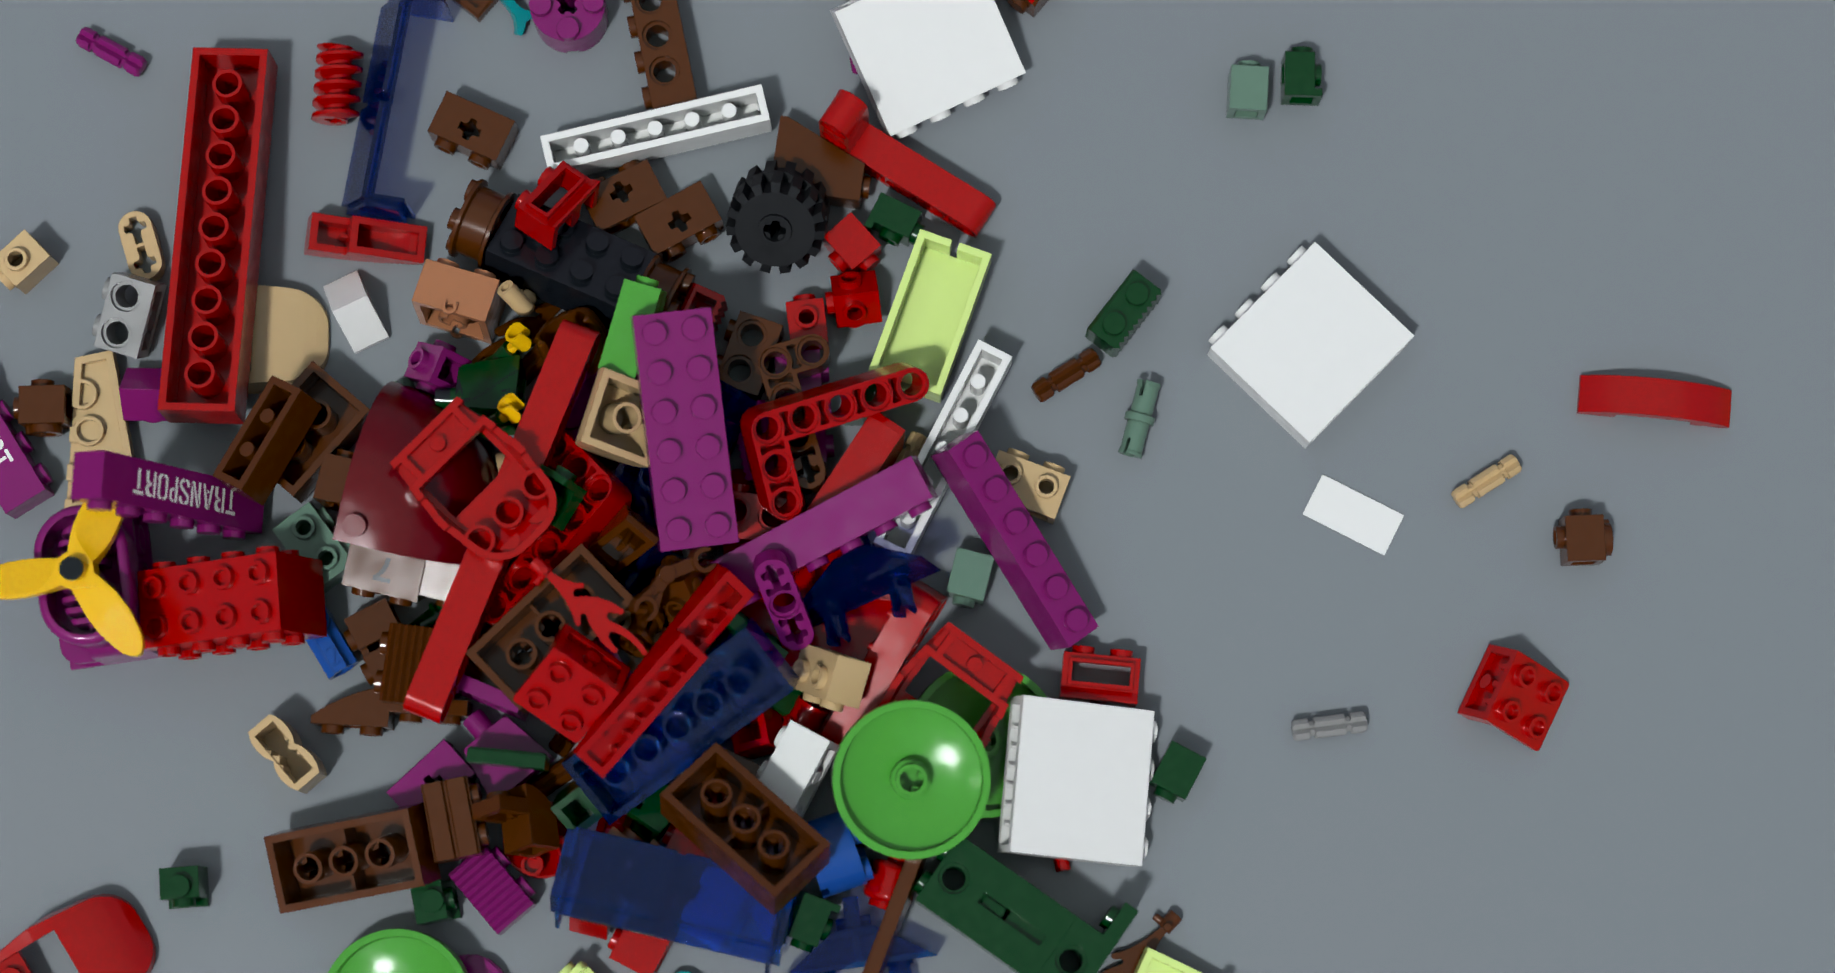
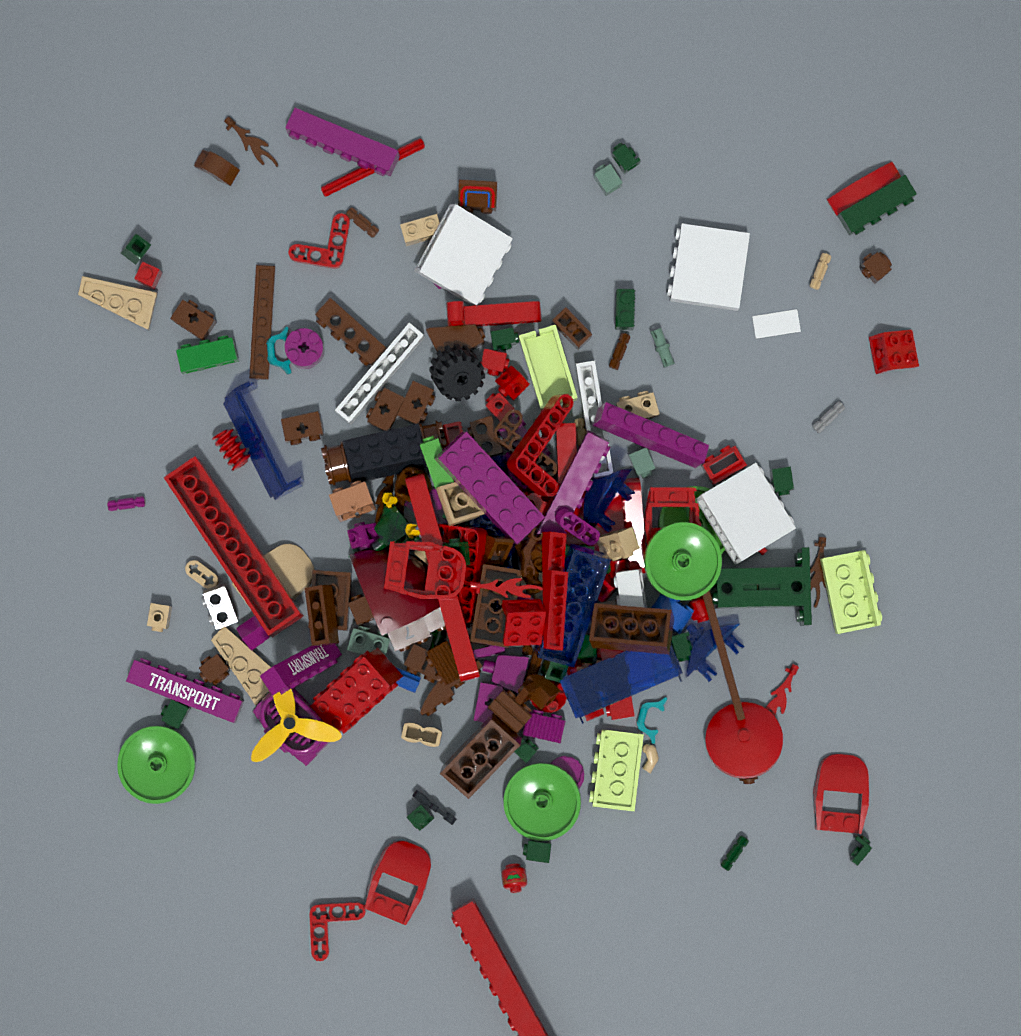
camera: 35 degrees left, 5 degrees up
(212, 858) = (423, 799): none -> black piece
(355, 312) = (310, 536): white slope -> none
(365, 239) = (292, 504): red slope -> none
(508, 758) = (513, 671): dark green tile -> none
(519, 300) = (376, 483): tan arm -> none
(545, 226) = (363, 447): red window -> none
(1015, 282) = (572, 328): none -> reddish brown brick
(1657, 442) = (877, 205): none -> dark green brick

